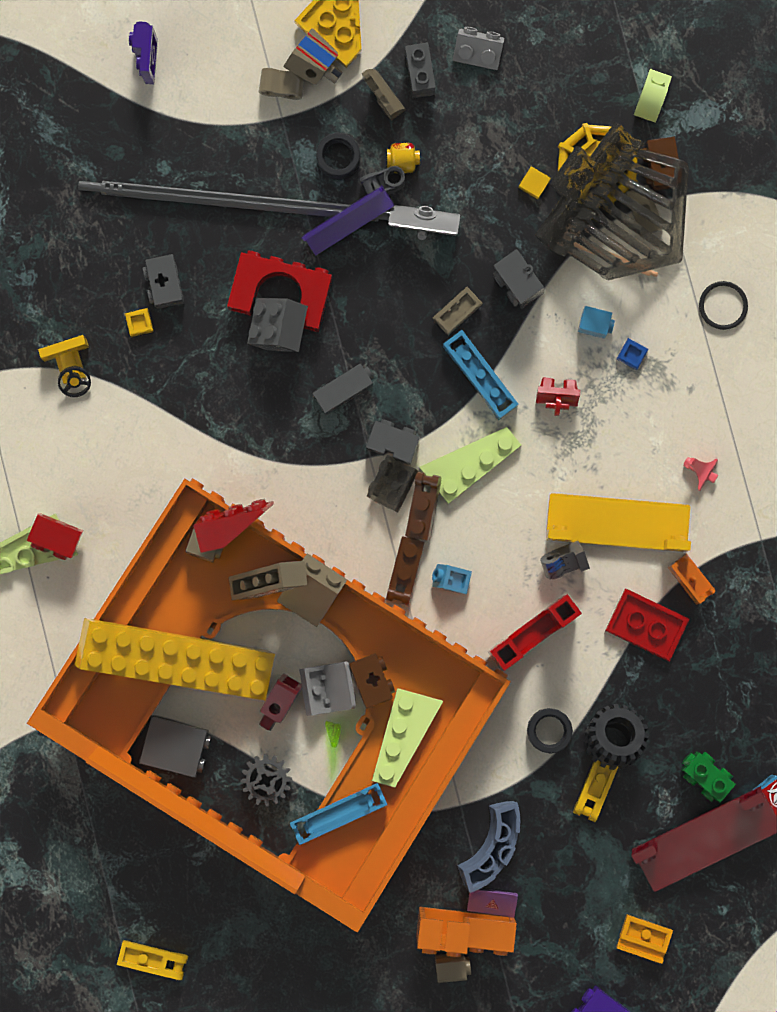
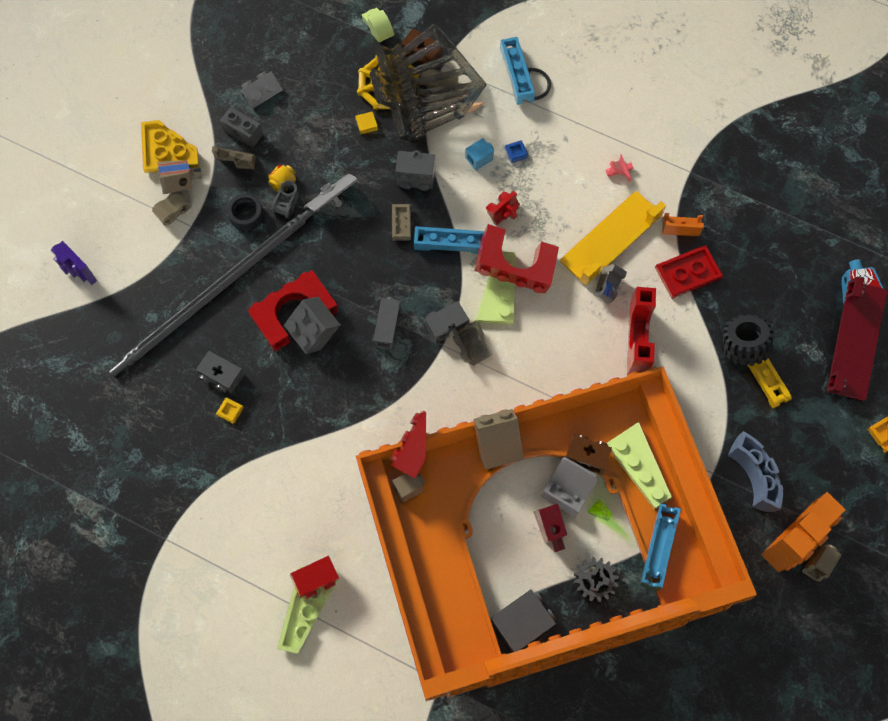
camera: 50 degrees left, 15 degrees down
(69, 364) = (212, 475): yellow piece -> none
(174, 659) = (465, 565): yellow brick -> none
(268, 580) = (469, 456): dark tan brick -> none
(348, 220) = (289, 235): dark purple panel -> none
(405, 569) = (531, 379): reddish brown plate -> none
(423, 507) = (503, 337): reddish brown plate -> none
(451, 578) = (562, 357): dark azure bracket -> none
(483, 435) = (492, 262): none -> red arch
(493, 902) = (795, 504): medium lavender slope -> none
(567, 726) = (719, 368): black tyre -> none
(700, 770) = (816, 310): green brick -> none
(722, 279) = (517, 70): none -> dark azure piece

